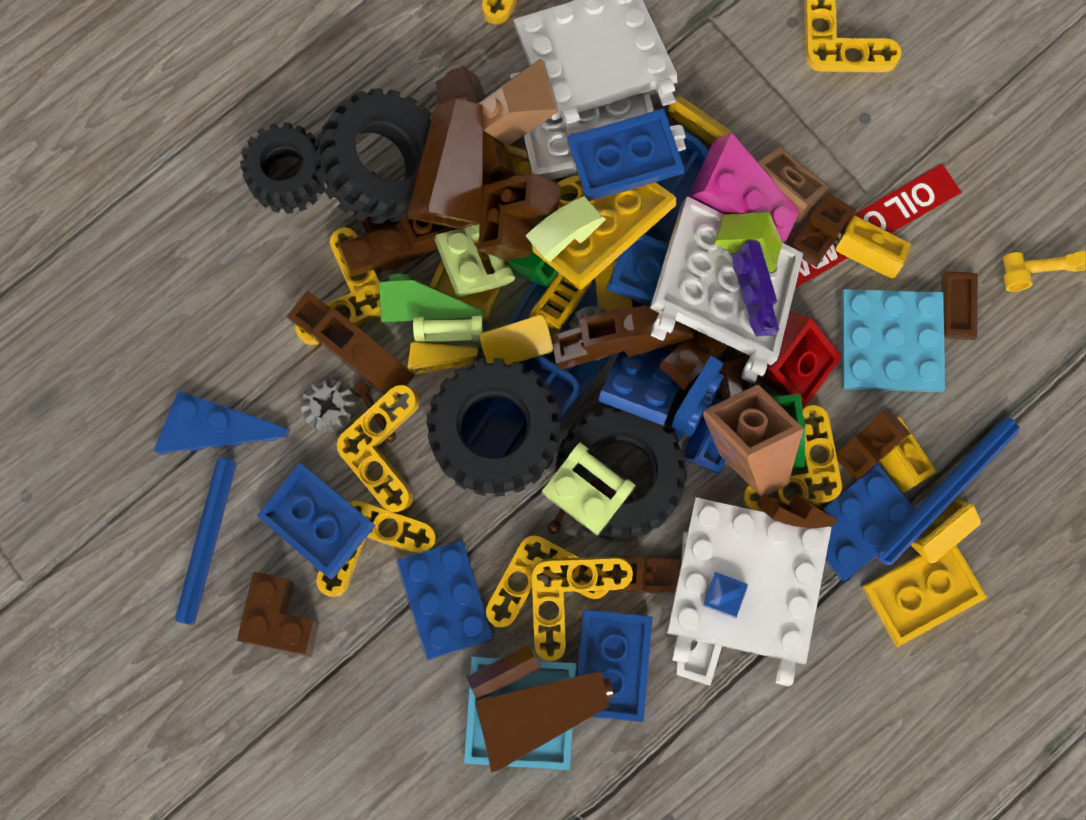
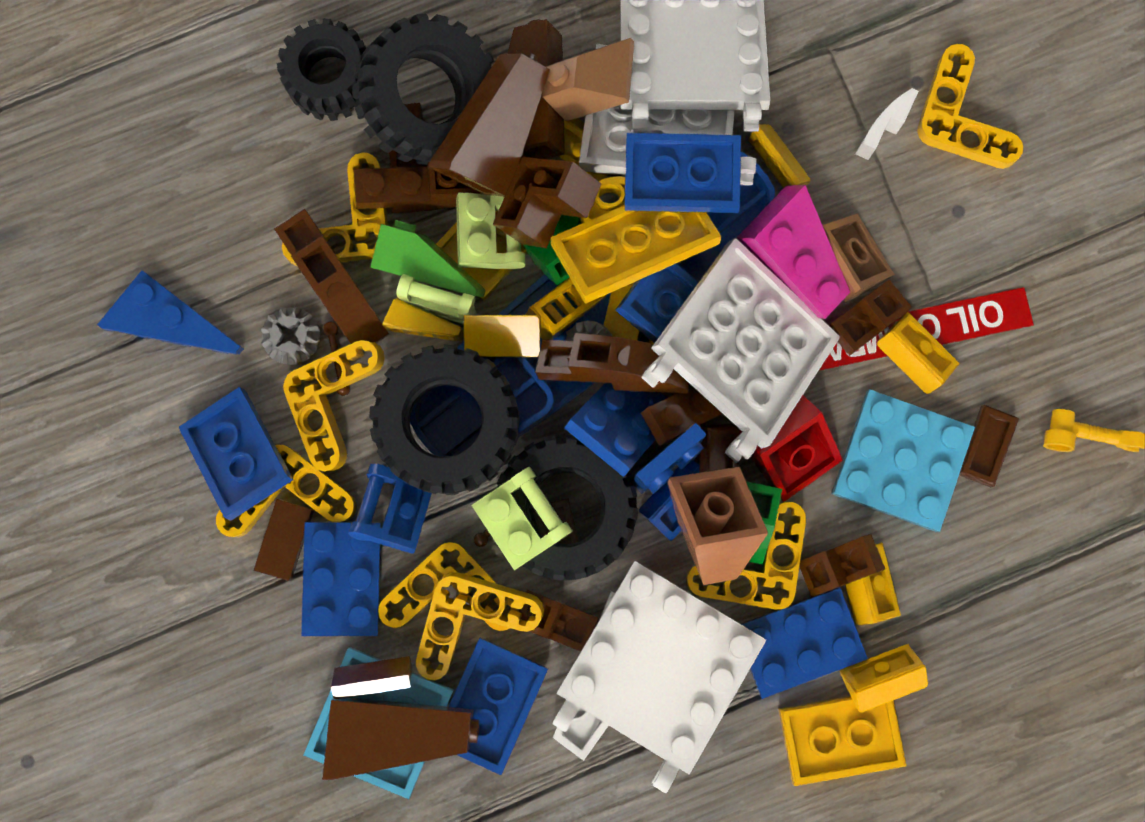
camera: 20 degrees right, 5 degrees up
(205, 541) = (119, 436): blue axle -> none
(266, 619) = (152, 541): reddish brown brick -> none
(381, 584) = (283, 540): none -> reddish brown tile
(481, 524) = (403, 516): none -> blue plate
(571, 221) = (598, 228): yellowish green slope -> none
(725, 595) = (629, 675): blue tile -> none
(739, 228) = (787, 305): lime slope -> none
(756, 288) = (773, 363): dark purple hinge -> none
(781, 60) = (890, 119): none -> white slope
(799, 513) = (738, 615): reddish brown slope -> none
(947, 491) = (903, 641): blue axle -> none

